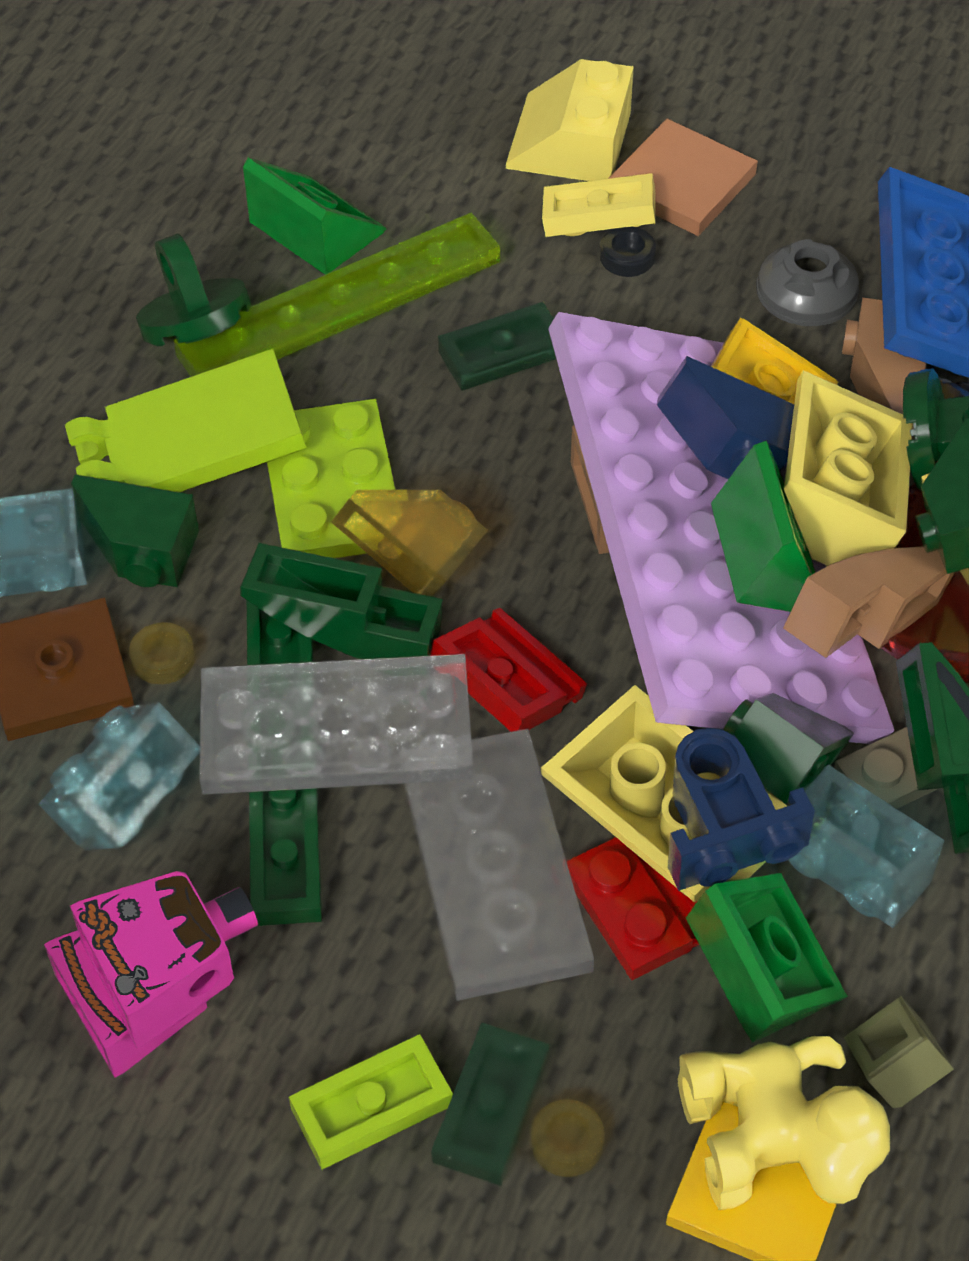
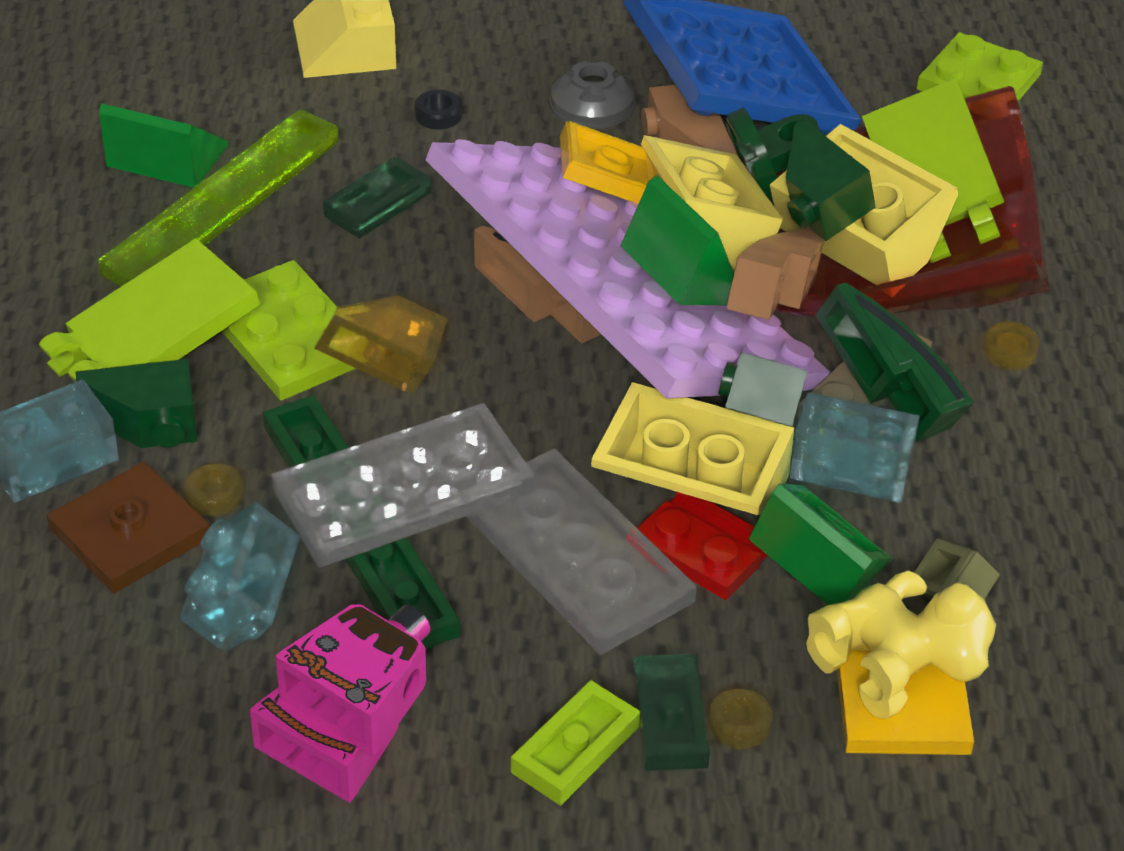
camera: 25 degrees left, 10 degrees down
(192, 306) = (97, 221): dark green tile -> none
(341, 604) = (355, 400): dark green slope -> none
(511, 671) = (528, 419): red plate -> none
(598, 205) = (401, 80): light yellow plate -> none
(690, 174) = (452, 48): nougat tile -> none
(724, 416) = (598, 182): dark blue slope -> none
(728, 816) = (759, 435): dark blue pin -> none

